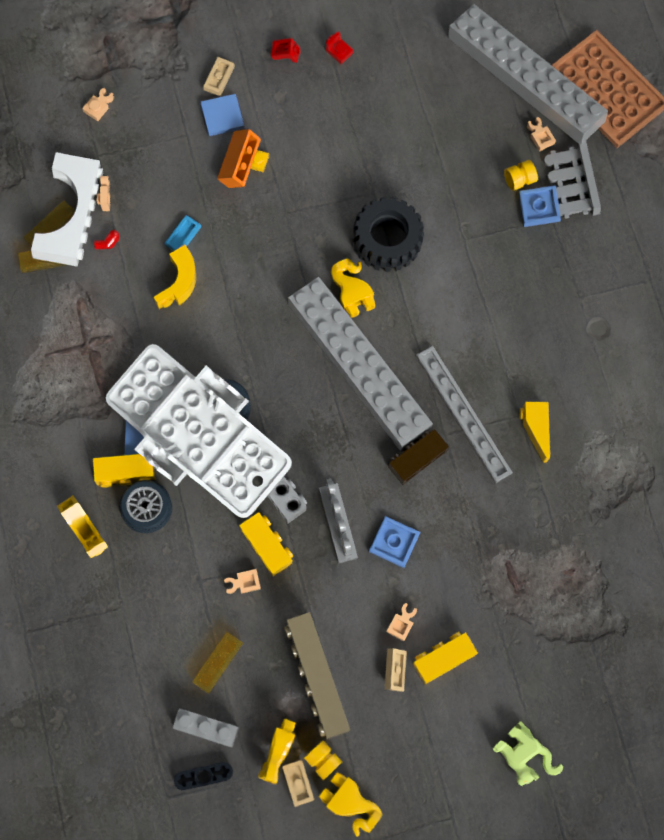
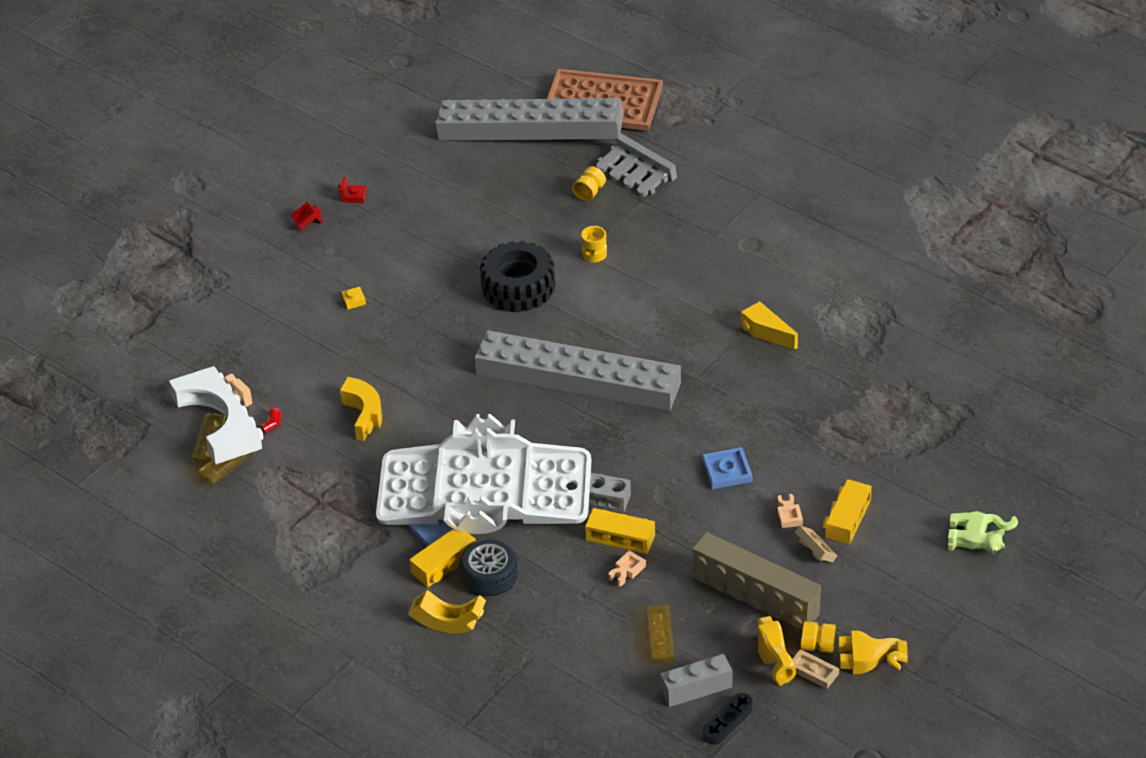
camera: 30 degrees left, 30 degrees down
(97, 106) = (172, 340): light nougat plate -> none
(183, 233) = (335, 377): dark azure tile -> none
(219, 76) = (265, 262): tan plate -> none
(222, 115) = (292, 286): medium blue tile -> none
(239, 158) = (338, 300): orange brick -> none
(338, 522) = (667, 483): light grey fence -> none
(353, 290) = (527, 326): yellow hips -> none
(418, 456) = (689, 400): dark brown brick -> none
(464, 414) = (698, 356): light grey tile -> none
(473, 242) = (594, 244): none -> yellow wheel
(540, 206) = (624, 196): medium blue tile -> none
(541, 136) = (580, 154): light nougat plate -> none

